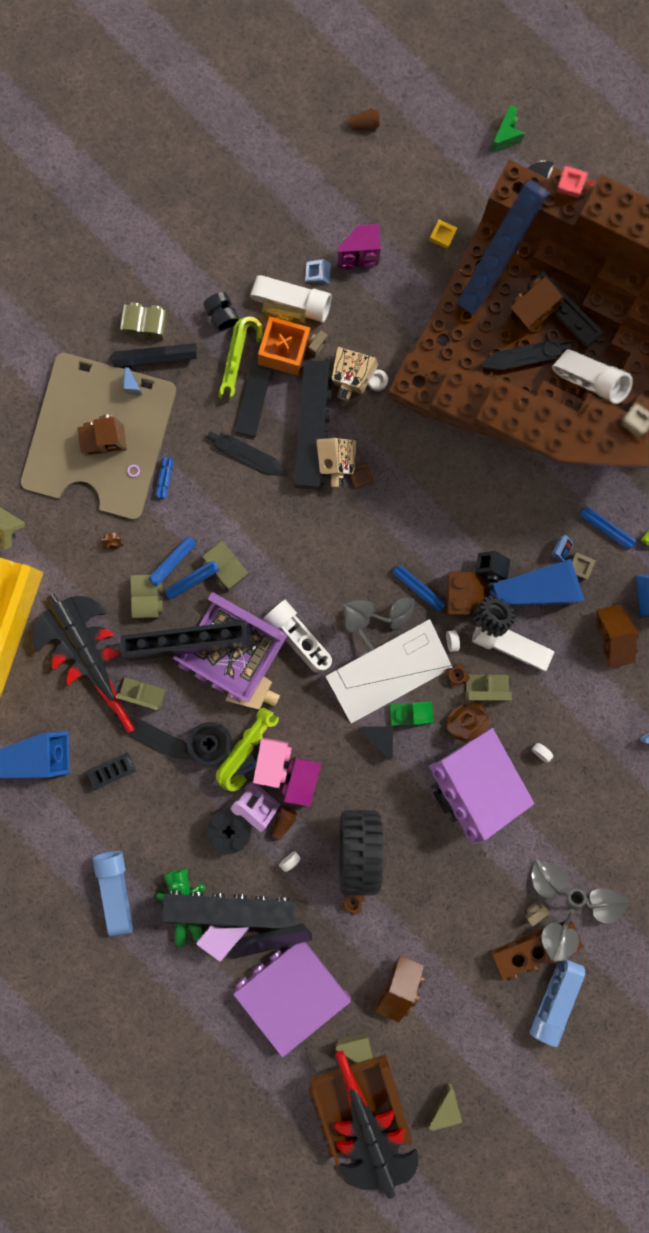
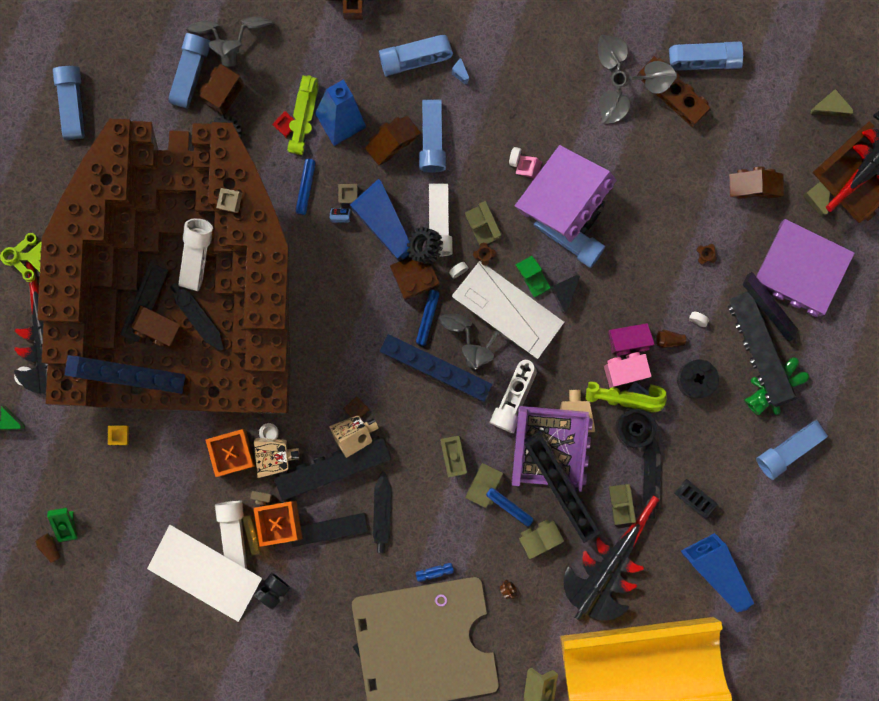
camera: 110 degrees left, 0 degrees up
(102, 436) = (426, 639): reddish brown brick -> none
(130, 384) = (369, 637): medium blue slope -> none
(143, 322) = (310, 653): olive brick -> none
(154, 355) = (334, 630): black tile -> none
(172, 561) = (503, 531): blue axle -> none
(220, 941) = (788, 344): lavender slope -> none
(235, 353) = (301, 562): lime piece -> none
(261, 811) = (669, 360): lavender plate -> none
(268, 548) = (453, 456): none -> olive panel
(269, 255) = (204, 573): none -> white sticker
(318, 272) = (198, 526): medium blue slope -> none
(360, 248) = (163, 497): magenta slope -> none
(360, 852) = (665, 265): black tyre -> none
(364, 571) = (435, 368): none -> dark blue brick
(375, 331) = (230, 453): none -> orange brick
(381, 143) = (62, 524): none -> green slope
(414, 780) = (585, 248): none -> medium blue beam
(468, 721) = (519, 227): reddish brown tile -> none
(492, 566) = (382, 265): black brick -> none
(525, 762) = (528, 166): none -> bright pink slope
(536, 913) = (645, 104): dark tan plate -> none
(572, 182) = (51, 341): coral plate -> none
(581, 669) = (432, 157): none -> medium blue beam

